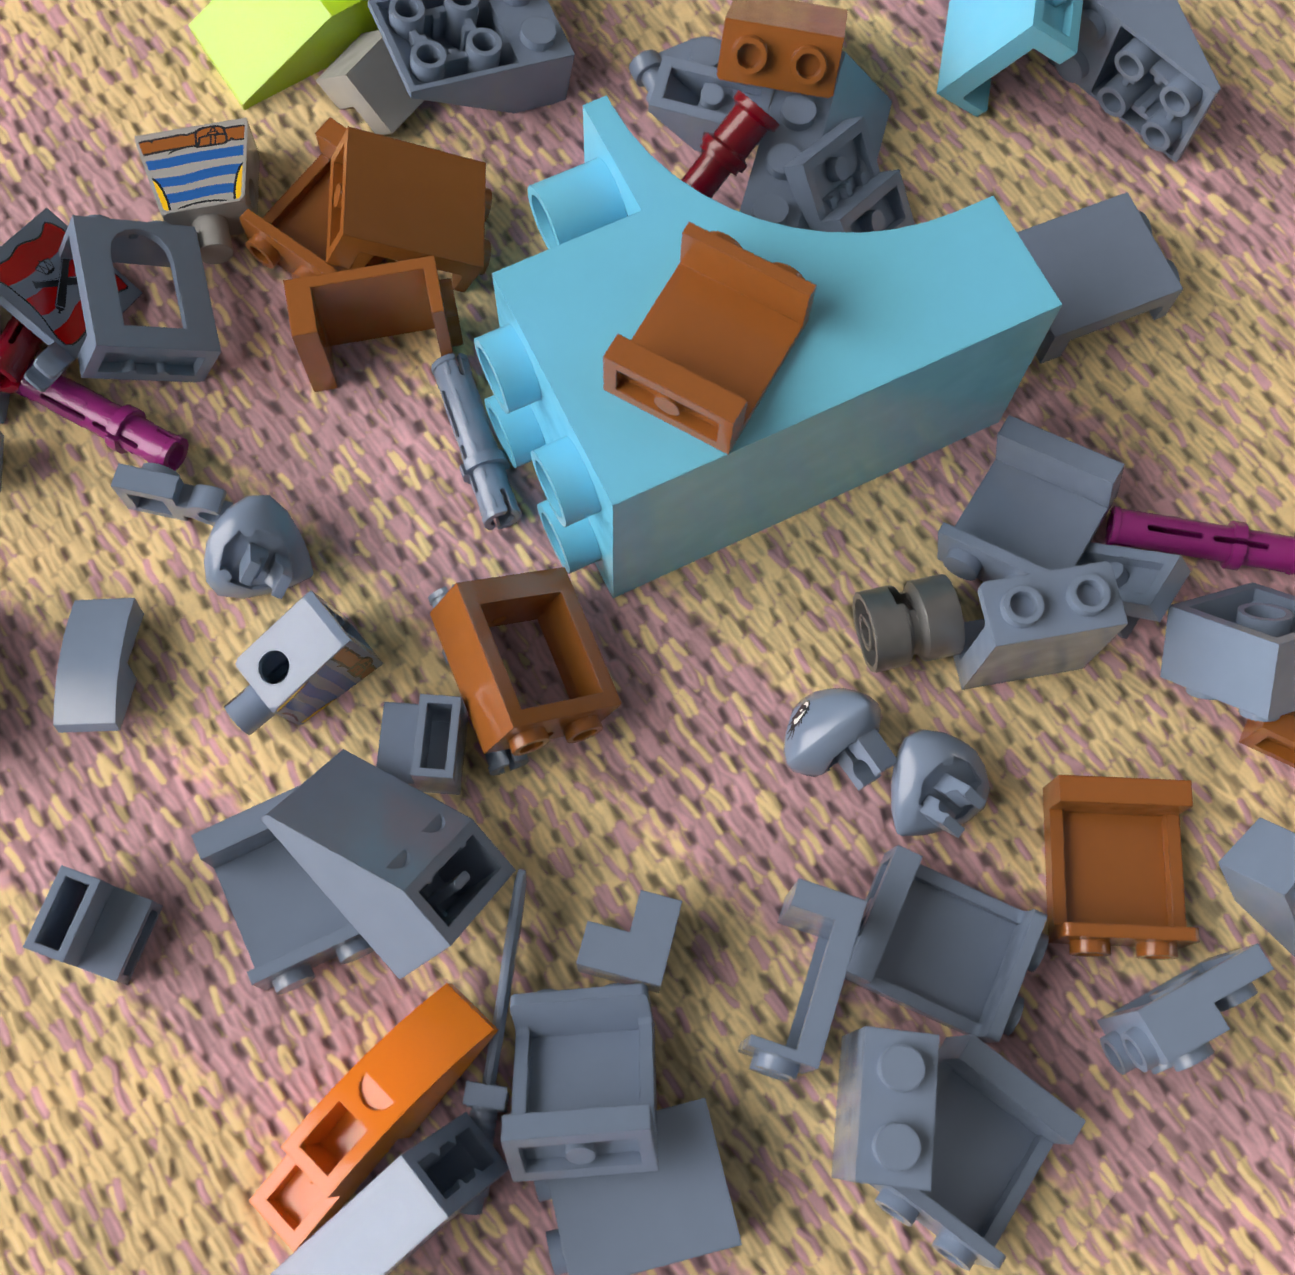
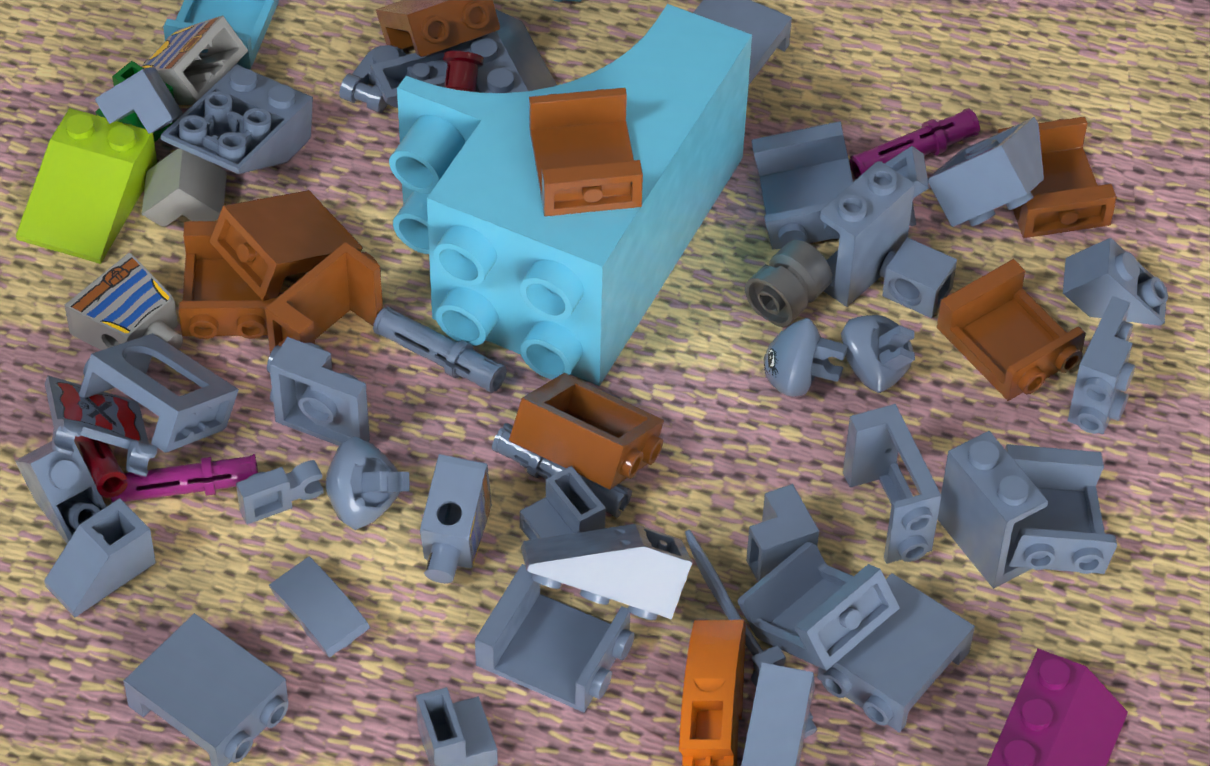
camera: 35 degrees left, 20 degrees down
(288, 408) = (315, 397): none -> sand blue plate
(842, 185) = (535, 69): sand blue slope -> none
(945, 948) = (952, 418): sand blue panel -> none
(1065, 715) = (918, 277): none -> sand blue brick

